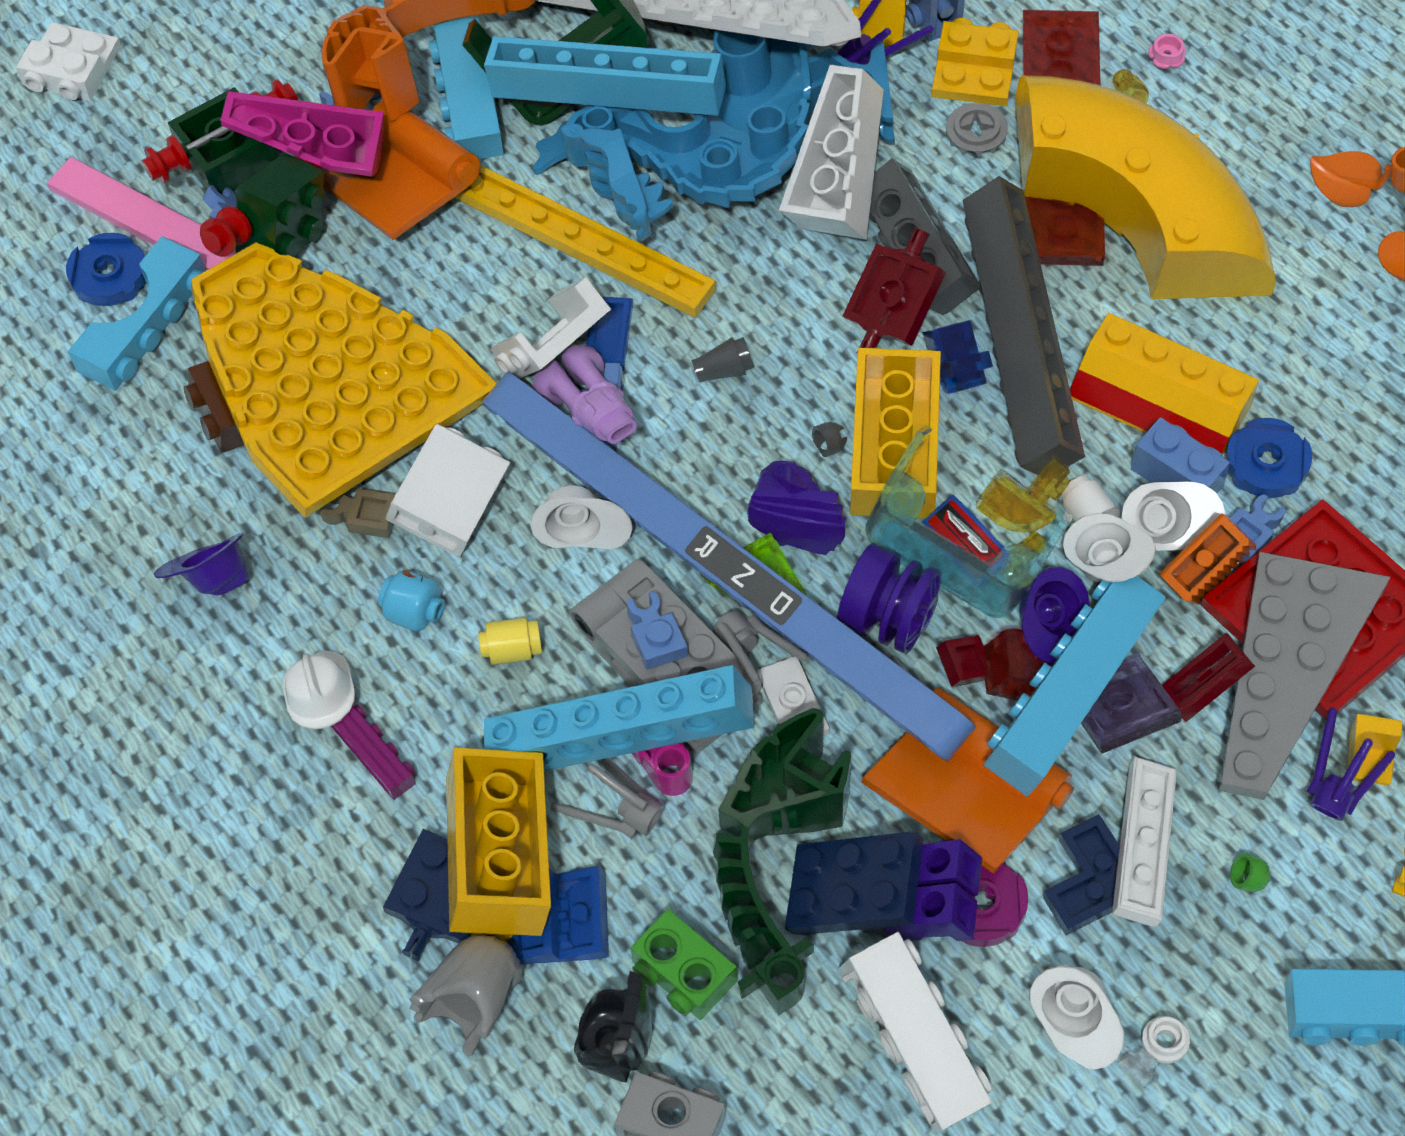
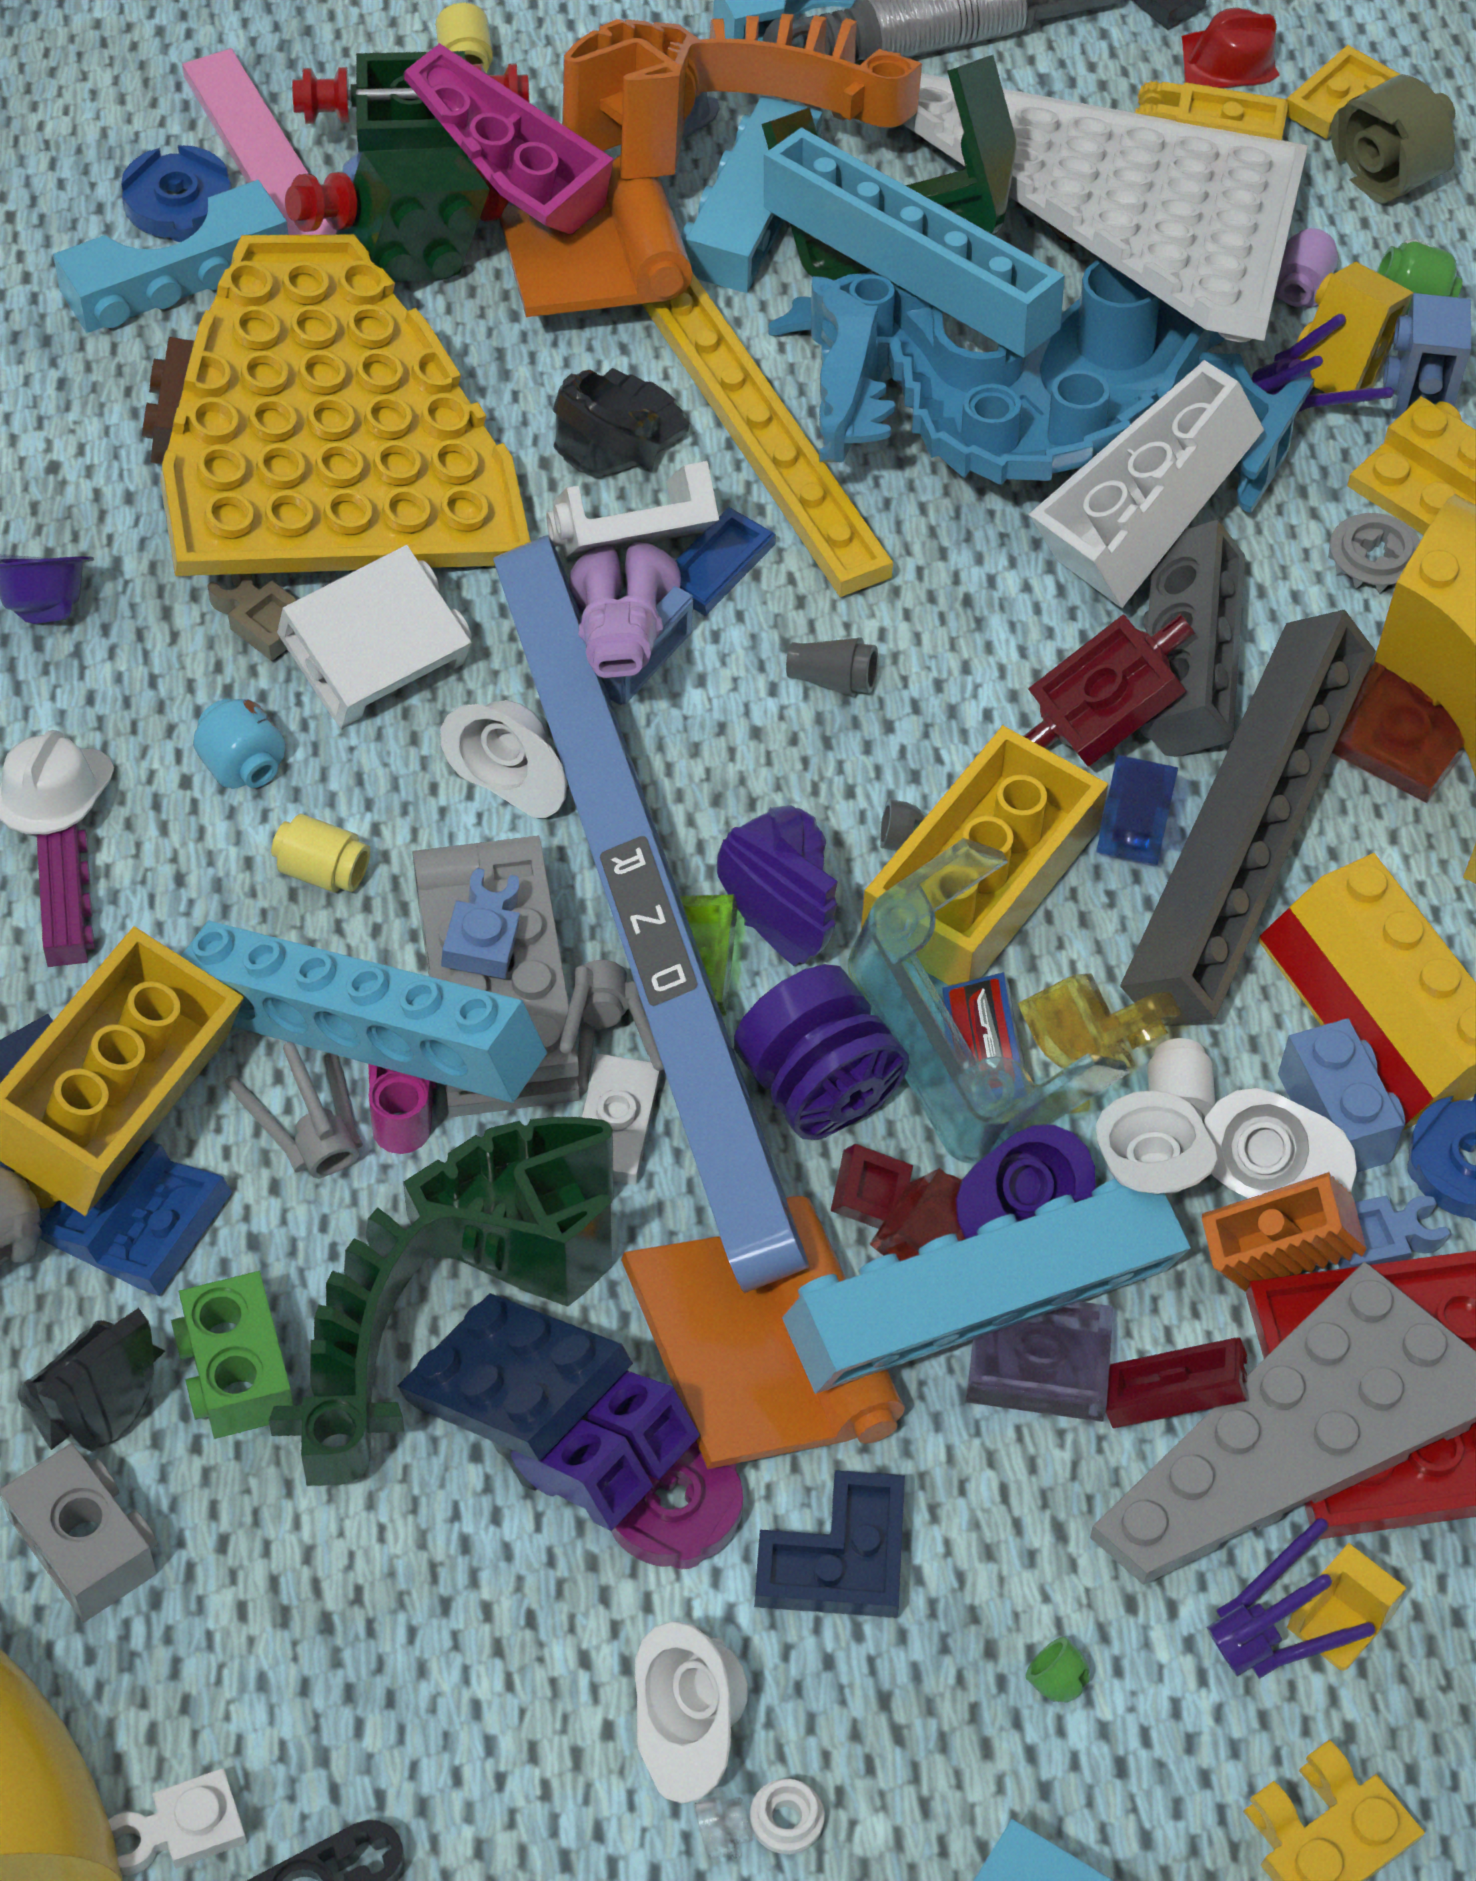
camera: 25 degrees right, 5 degrees down
(215, 75) = (466, 29): none -> light yellow brick
(489, 278) = (614, 421): none -> black hair
(917, 1031) = (457, 1605): white wedge -> none
(1144, 842) = (938, 1545): white tile -> none

